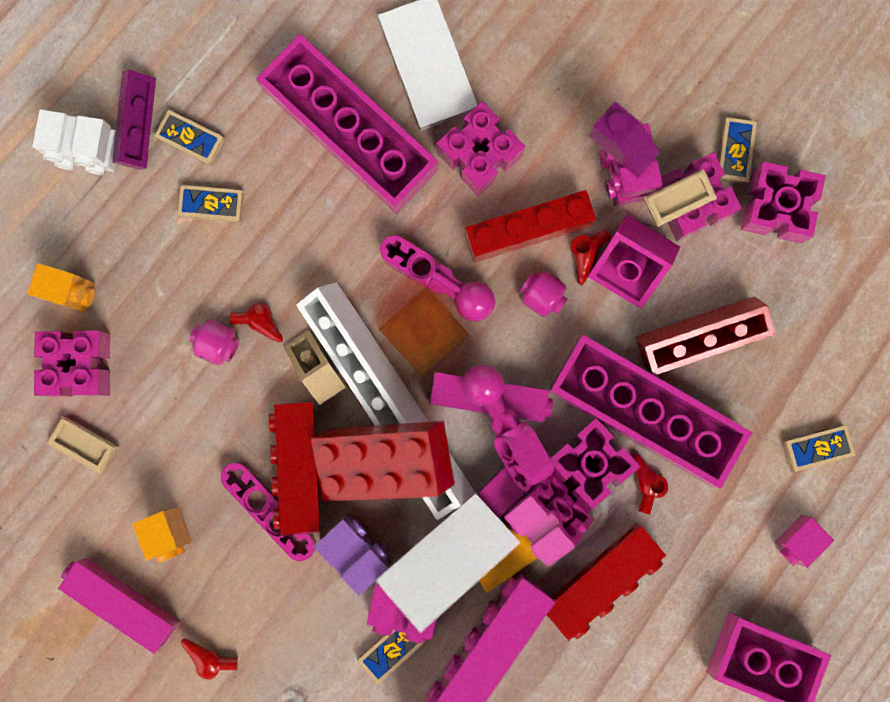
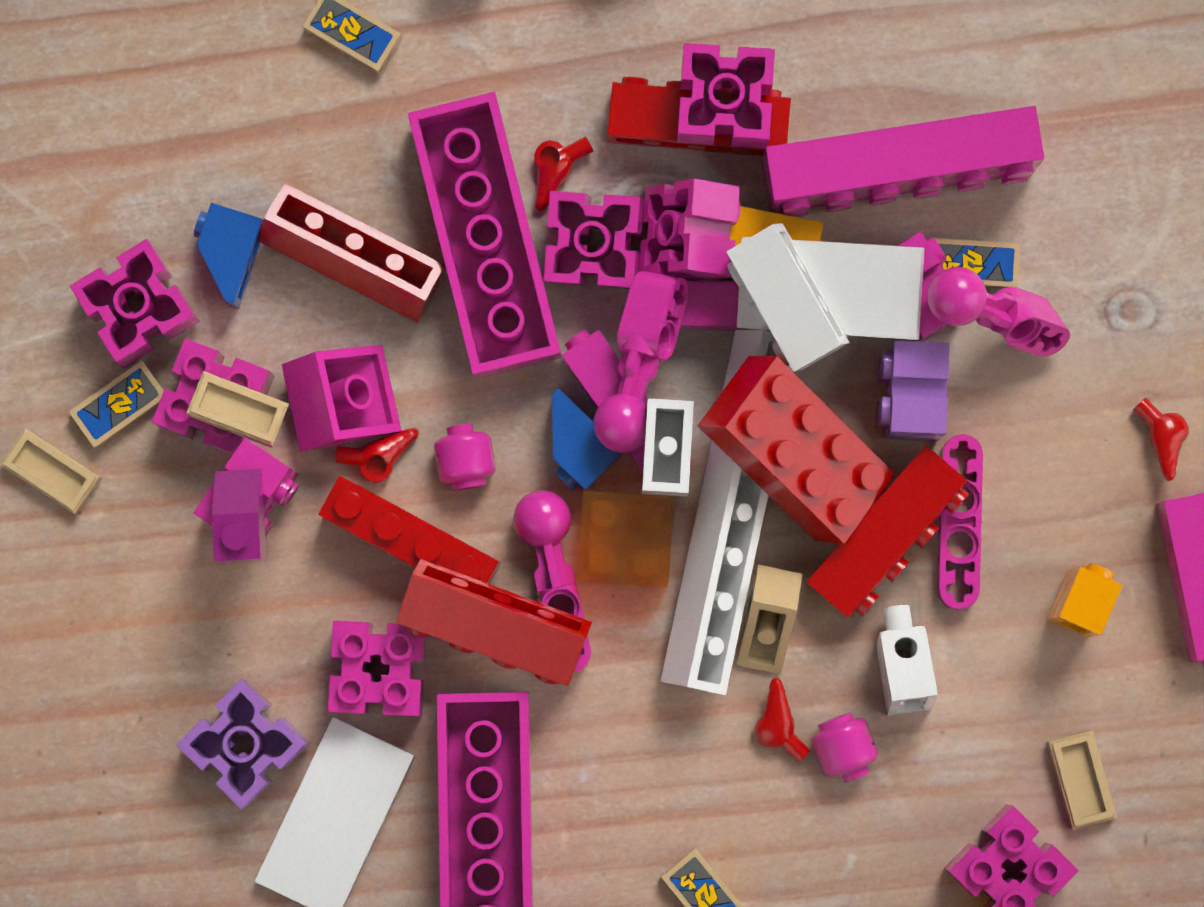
camera: 135 degrees left, 0 degrees up
(210, 406) = (906, 682): none -> white torso
(337, 647) = (1021, 317): none -> dark pink beam
(445, 221) = (493, 623): none -> red brick
(447, 394) = (667, 447): none -> white brick
(465, 533) = (786, 298): none -> white brick
(495, 351) = (576, 447): none -> blue slope
(520, 35) = (214, 744): none -> medium lavender brick
(624, 608) = (747, 77): none -> dark pink brick
(734, 86) = (50, 471): none -> tan tile
(764, 275) = (229, 248): none -> blue slope

